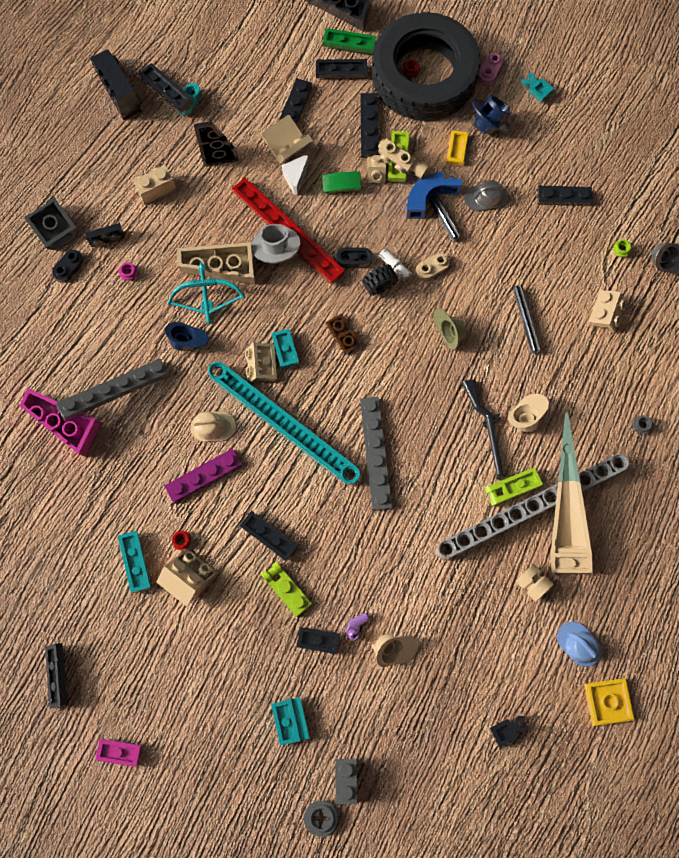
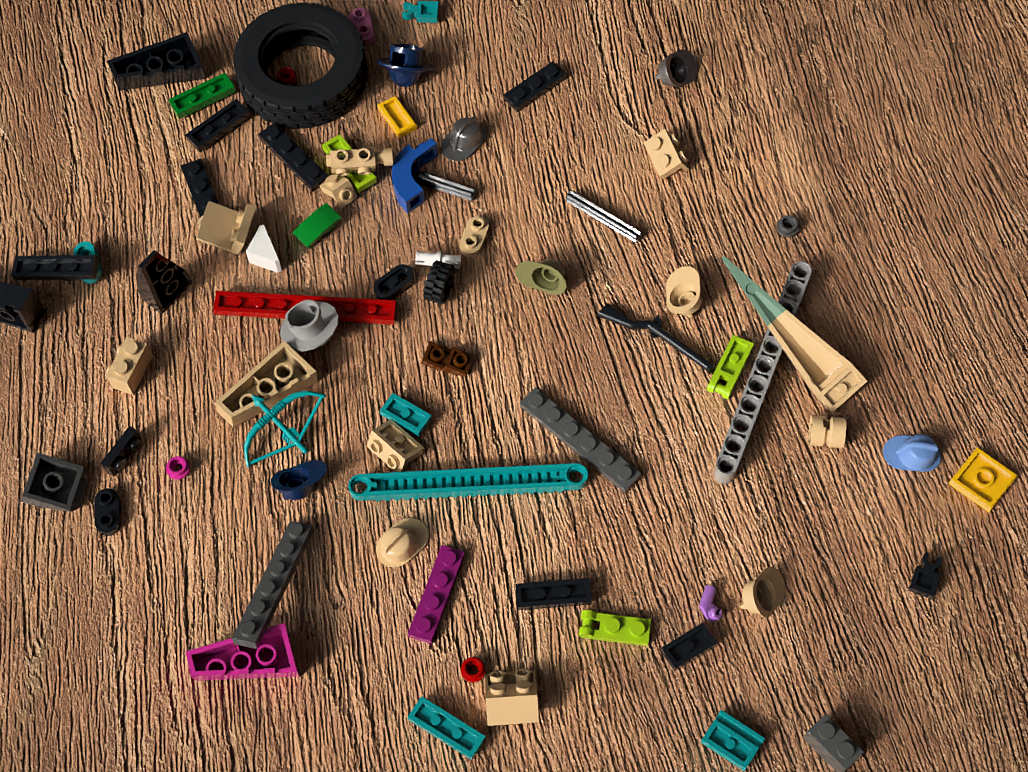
camera: 40 degrees left, 10 degrees down
(625, 244) = (628, 88): lime plate -> none

